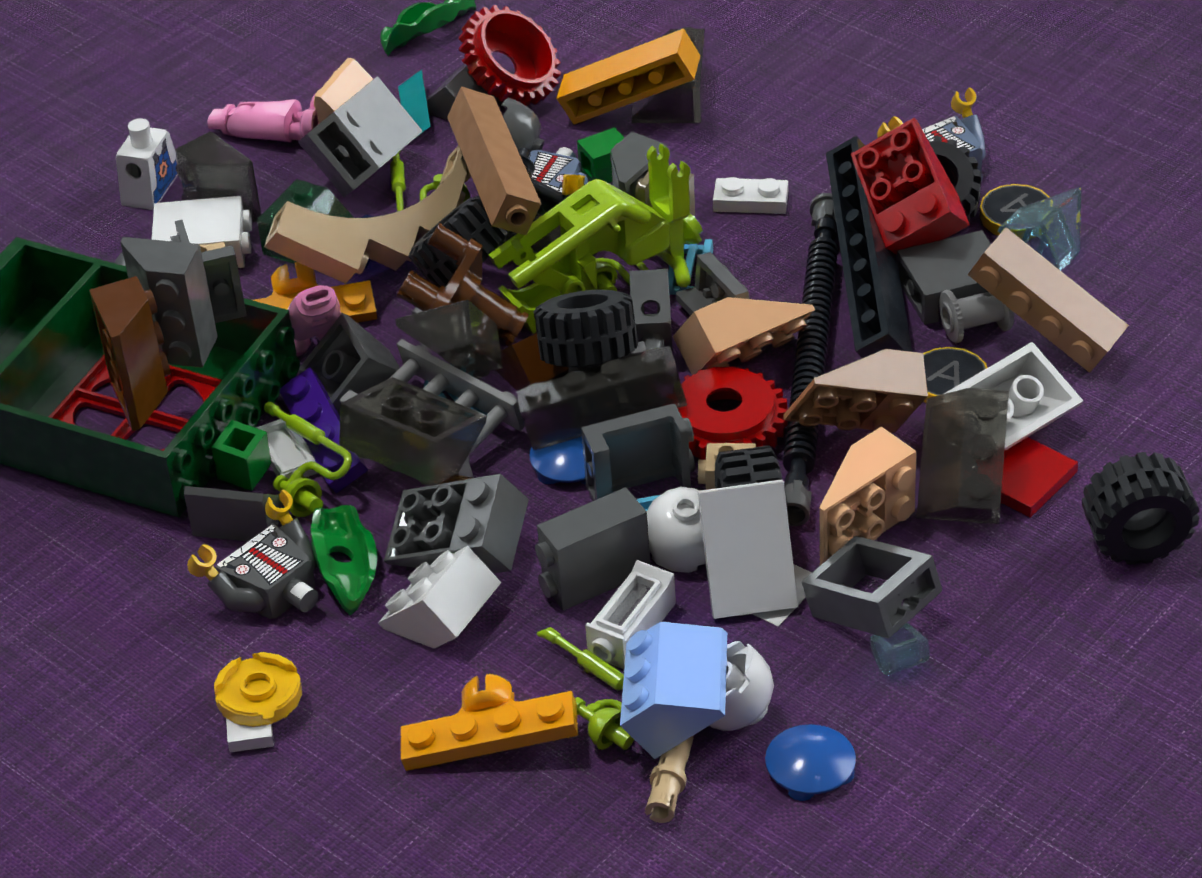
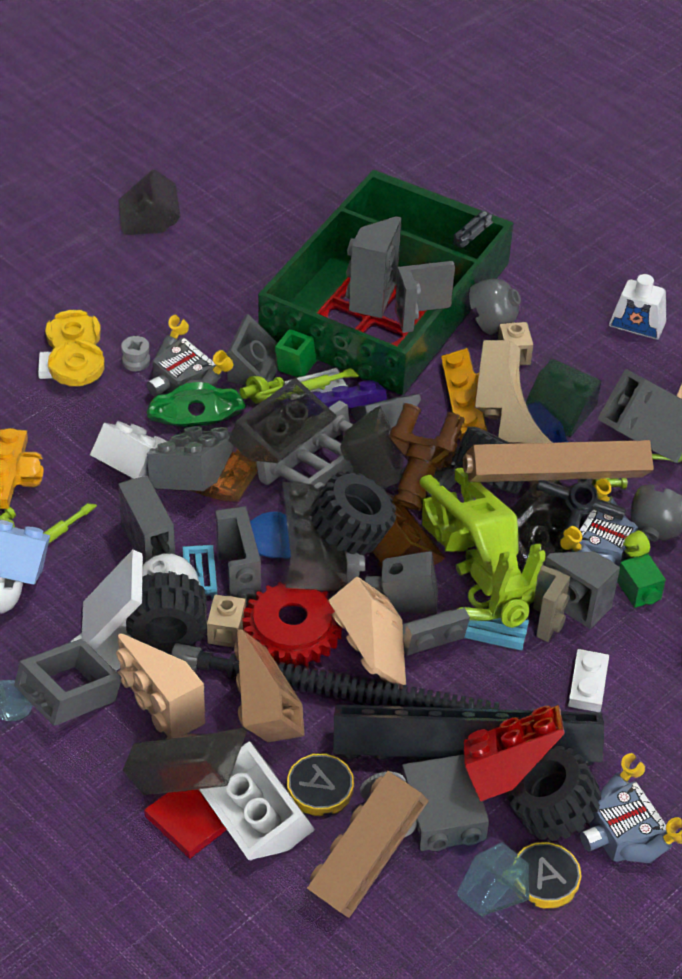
camera: 90 degrees right, 5 degrees up
(40, 262) = (472, 229): none -> black axle
(131, 347) = (321, 248): reddish brown slope -> none
(170, 721) = (72, 326): none -> yellow tile
(207, 223) = (559, 336): white panel -> none
(216, 170) = (613, 340): clear smoke slope -> none
(228, 633) = (135, 353): none -> light grey wheel
(313, 315) = (423, 381): bright pink piece -> none
(569, 142) = (636, 544): none -> lime hinge
(636, 606) = (87, 548): white window -> none
(1140, 508) = (91, 861): black tyre -> none

